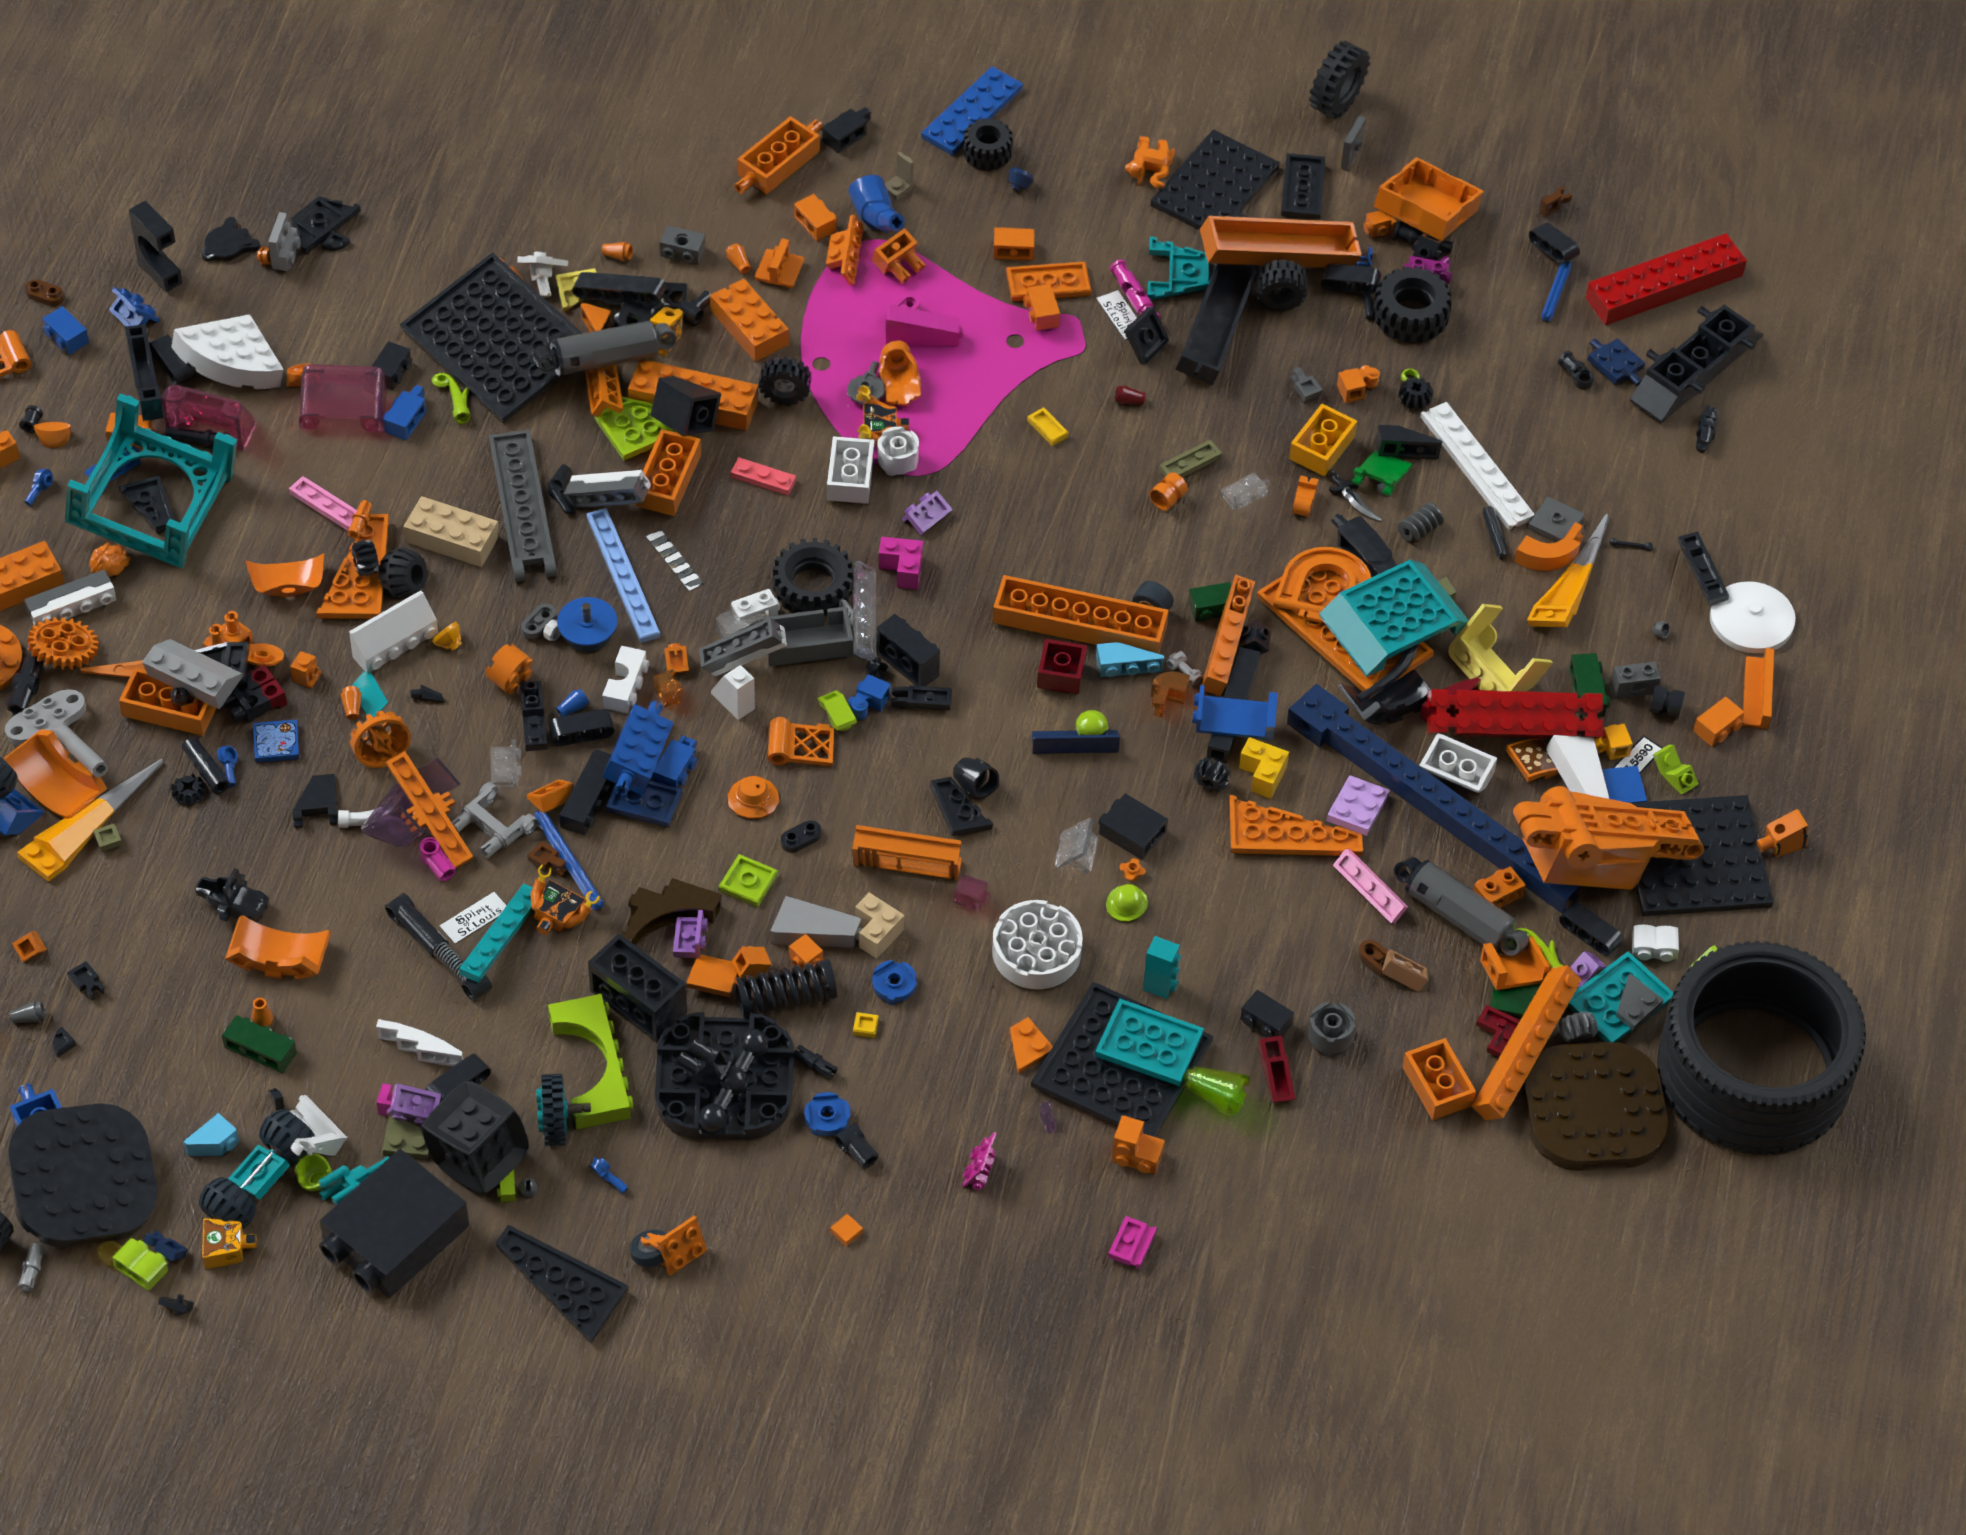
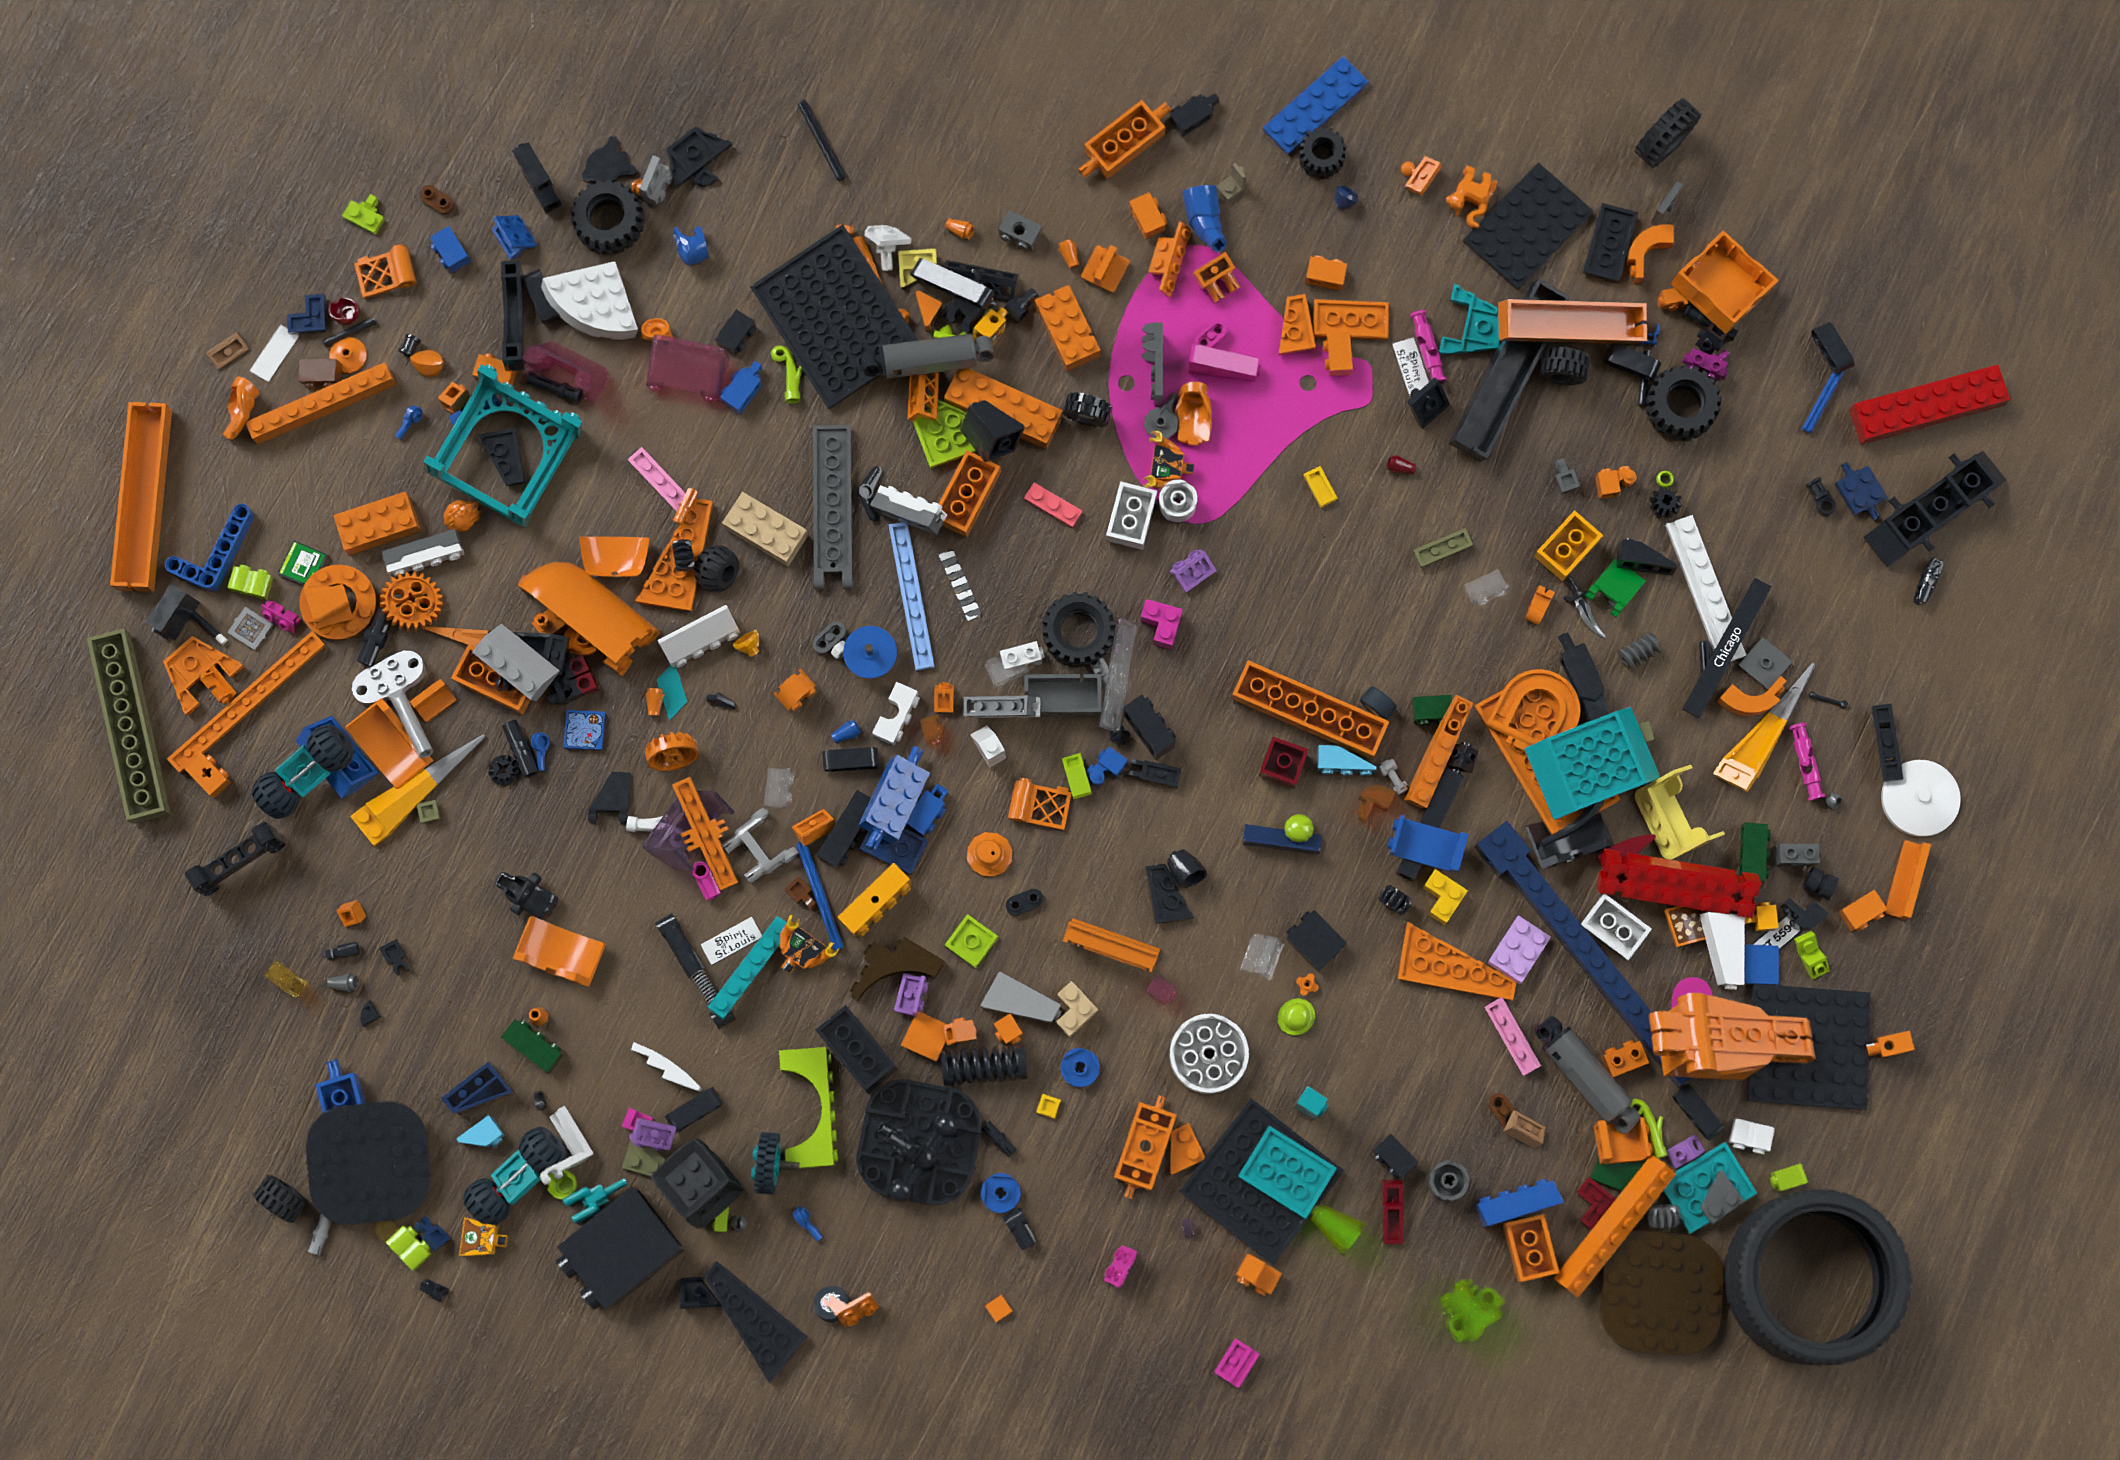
camera: 15 degrees right, 25 degrees up
(23, 983) = (343, 951): none -> black bar
(85, 457) = (454, 397): none -> orange brick
(100, 731) = (433, 700): none -> orange panel
(201, 1092) = (478, 1088): none -> dark blue wedge
(235, 261) = (599, 195): none -> black tyre
(269, 615) = (589, 609): none -> orange panel
(330, 296) = (691, 249): none -> blue helmet
(455, 194) = (821, 140): none -> black axle
(490, 1268) = (696, 1294): none -> black slope
(533, 716) = (809, 742): black slope -> none
(633, 848) = (885, 890): none -> light orange brick
(847, 319) = (1154, 353): none -> dark grey hinge
(981, 1061) = (1138, 1167): none -> orange brick
(993, 292) = (1297, 327): none -> orange wing
(1094, 155) = (1420, 176): none -> orange plate
(1167, 492) = (1413, 583): orange wheel -> none
(1342, 178) = (1652, 238): none -> orange arch
(1385, 1146) = (1470, 1310): none -> clear neon green piece
(1389, 1051) = (1519, 1203): none -> blue slope
(1512, 507) = (1726, 648): none -> black tile
(1552, 202) = (1841, 297): reddish brown plate -> none
(1616, 586) = (1804, 751): none -> dark pink piece
(1659, 735) = (1806, 918): none -> black brick

